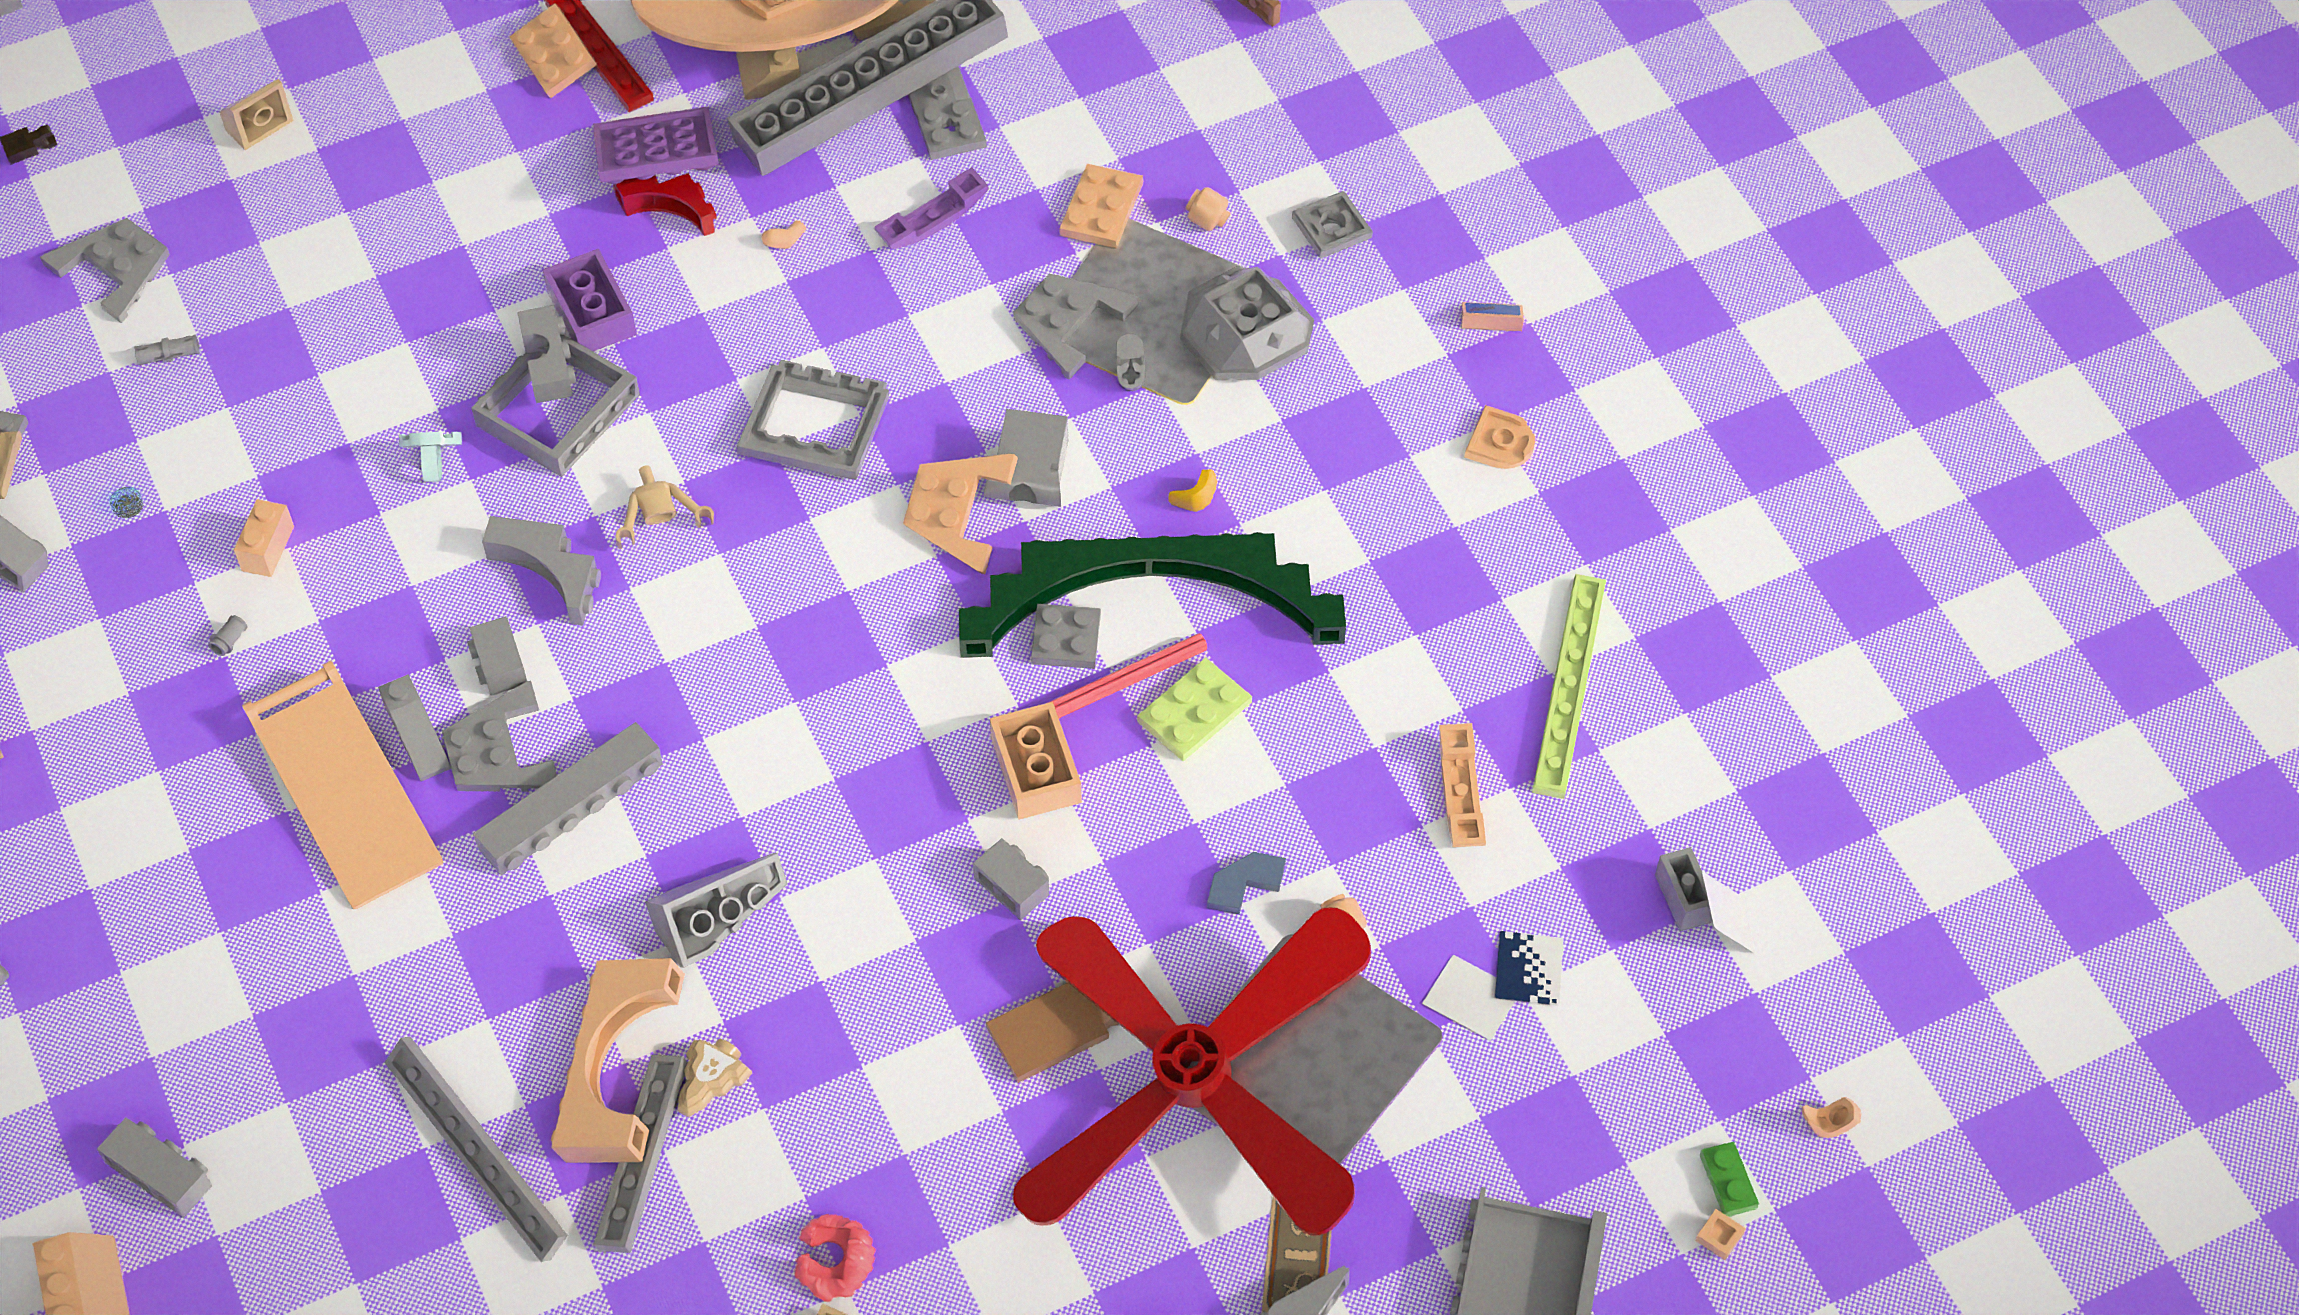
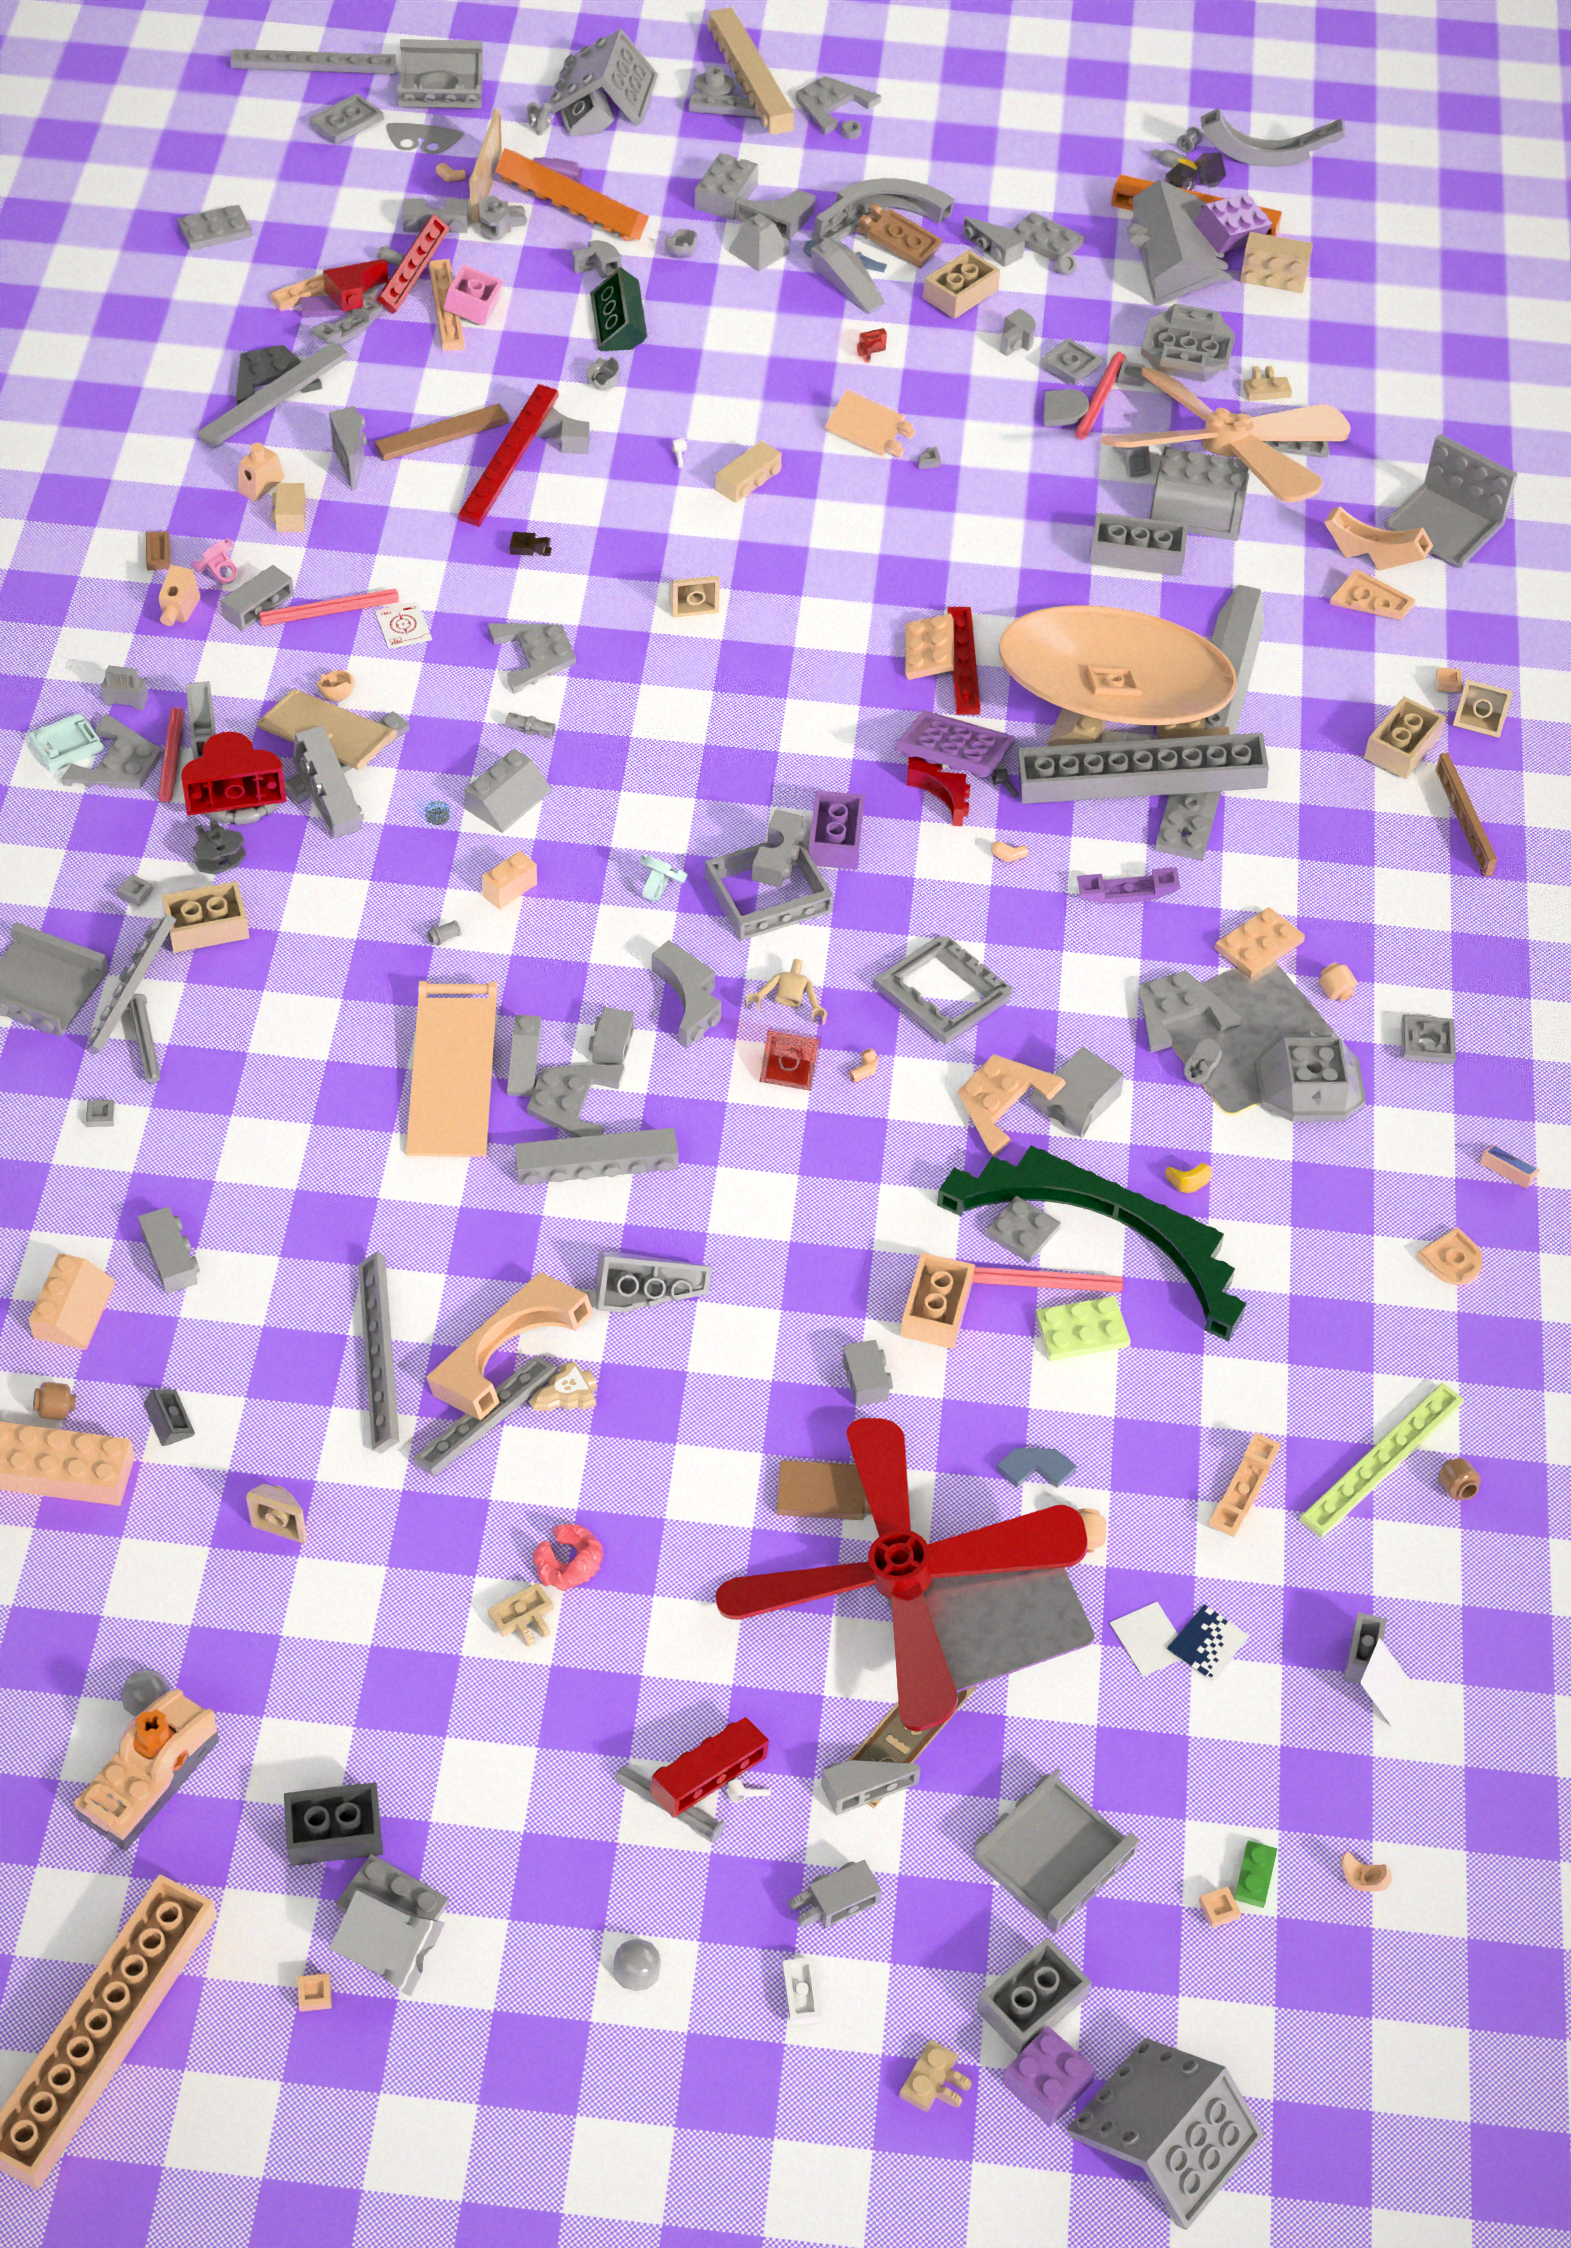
camera: 30 degrees right, 5 degrees down
(192, 438) = (506, 791): none -> slope
(706, 579) = (790, 1059): none -> clear red slope
(725, 158) = (1001, 776): none -> dark grey hand
(791, 546) = (867, 1068): none -> light nougat arm
(1656, 664) = (1459, 1479): none -> medium nougat head

